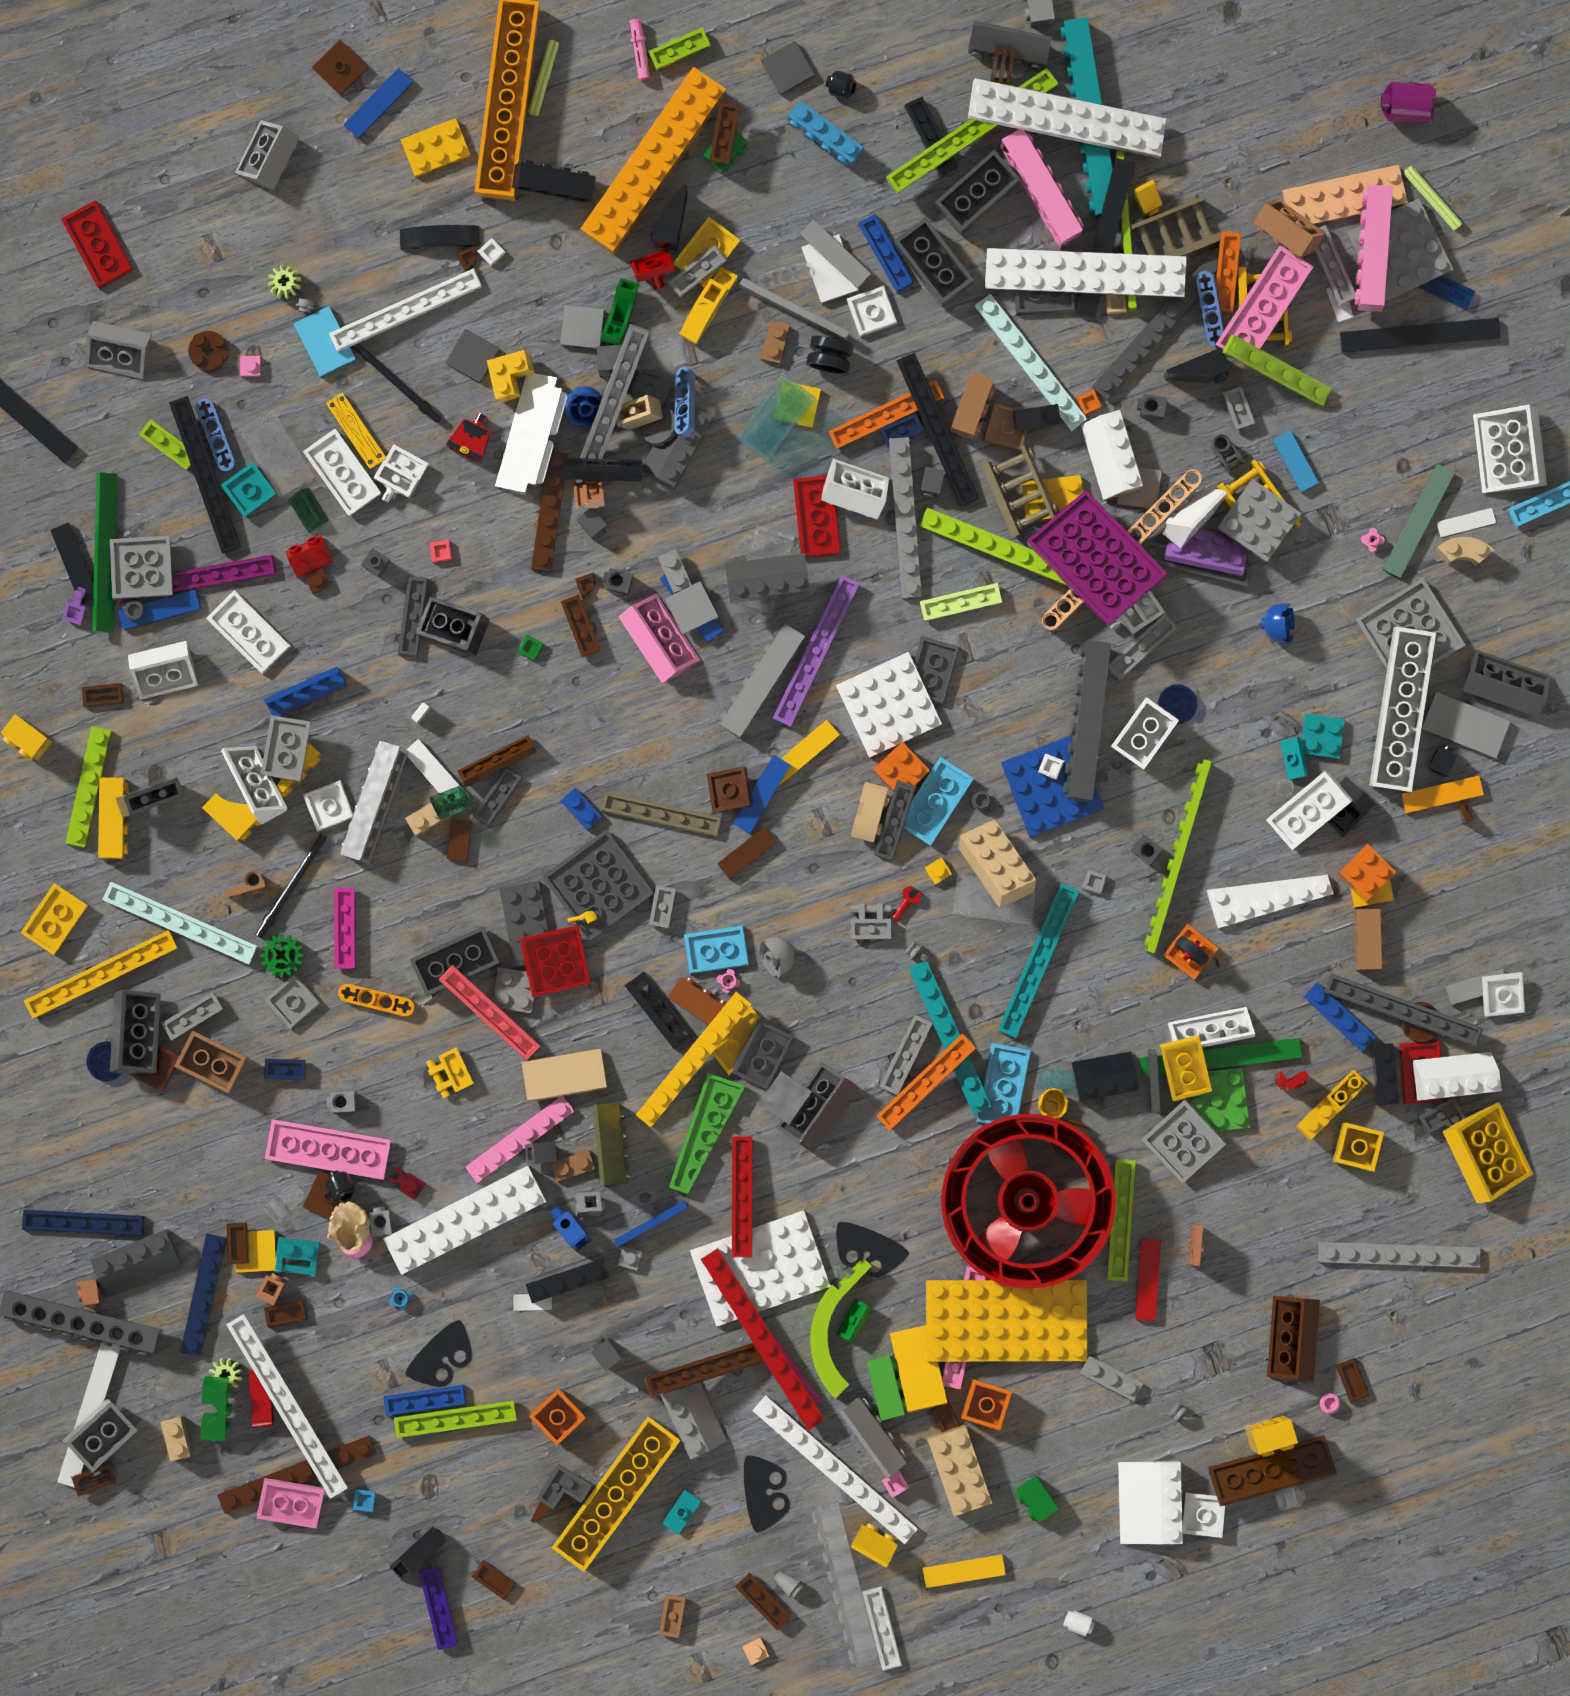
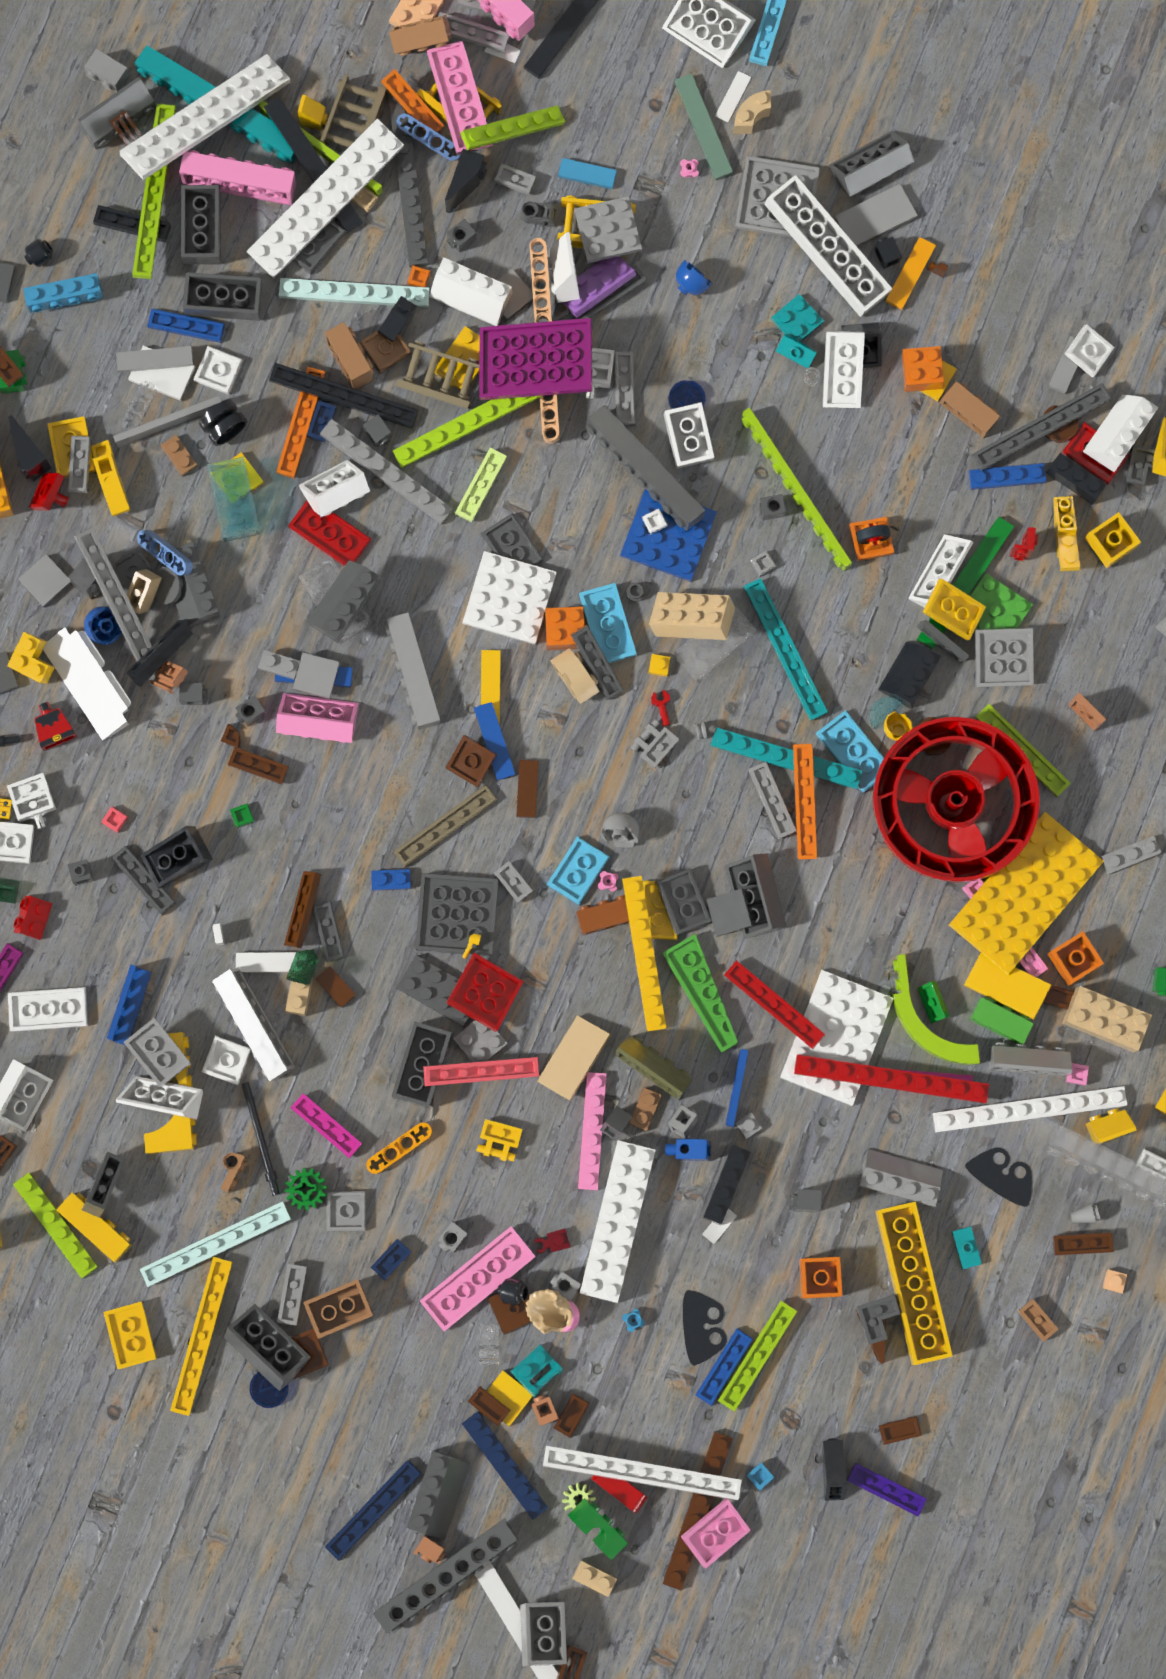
camera: 55 degrees left, 5 degrees down
(317, 581) = (55, 926): reddish brown plate -> none
(549, 514) = (158, 719): reddish brown plate -> none
(620, 312) = (58, 542): green arch -> none
(651, 1013) = (585, 956): black fence -> none
(702, 1370) = (877, 1141): reddish brown plate -> none
(816, 651) = (425, 615): medium lavender plate -> none
(860, 1239) = (877, 947): black piece -> none
(1148, 1280) = (1081, 768): red tile -> none
(1254, 900) = (871, 467): white wing -> none

